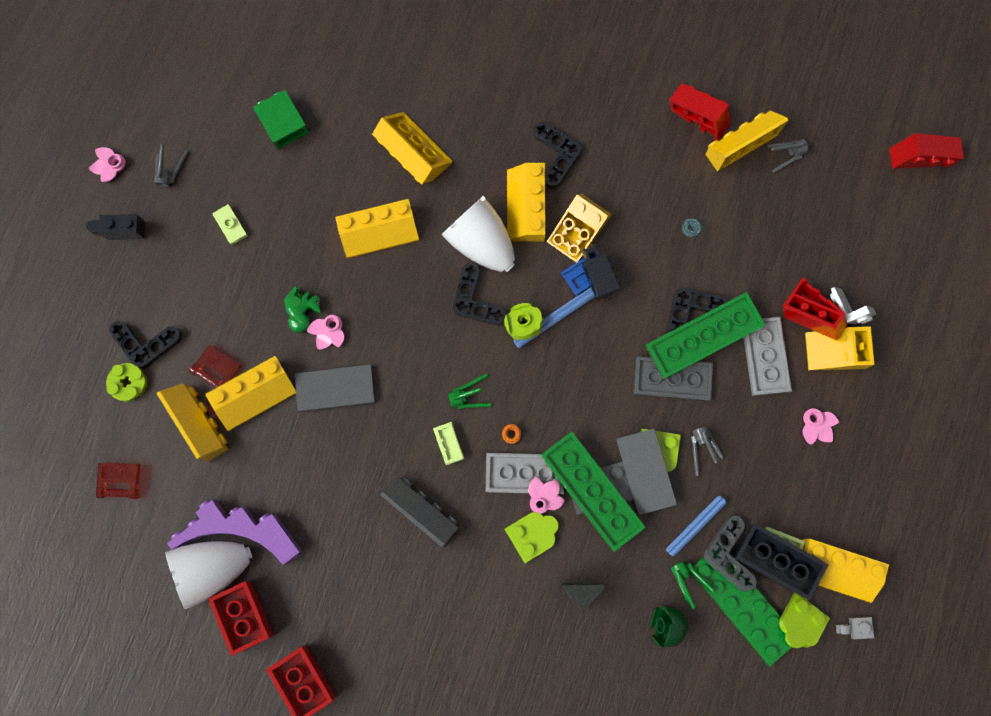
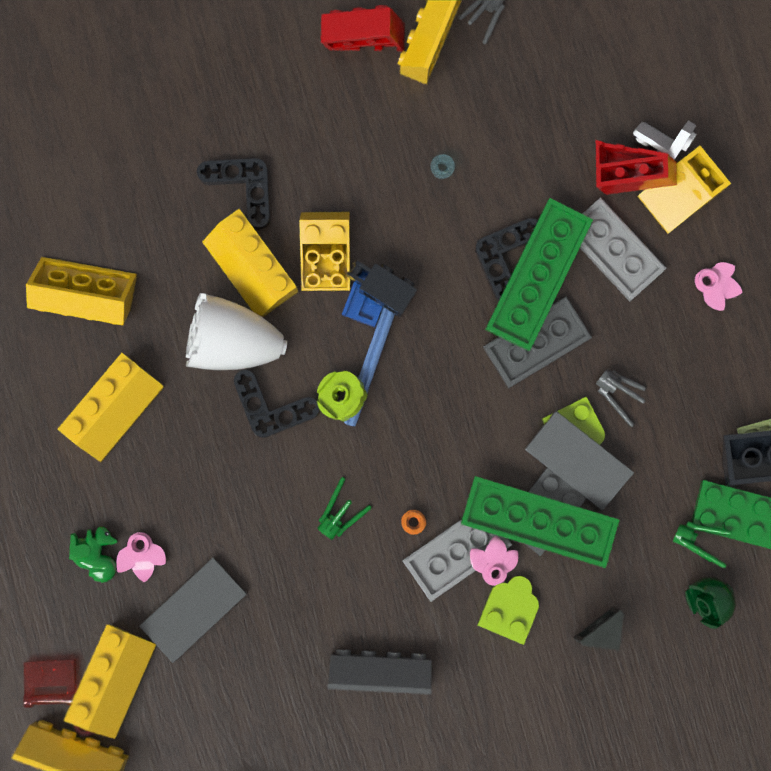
camera: 40 degrees left, 5 degrees up
(448, 443) = (356, 580): yellowish green plate -> none
(703, 518) = (667, 478): medium blue axle -> none
(724, 557) = (717, 491): dark grey beam -> none

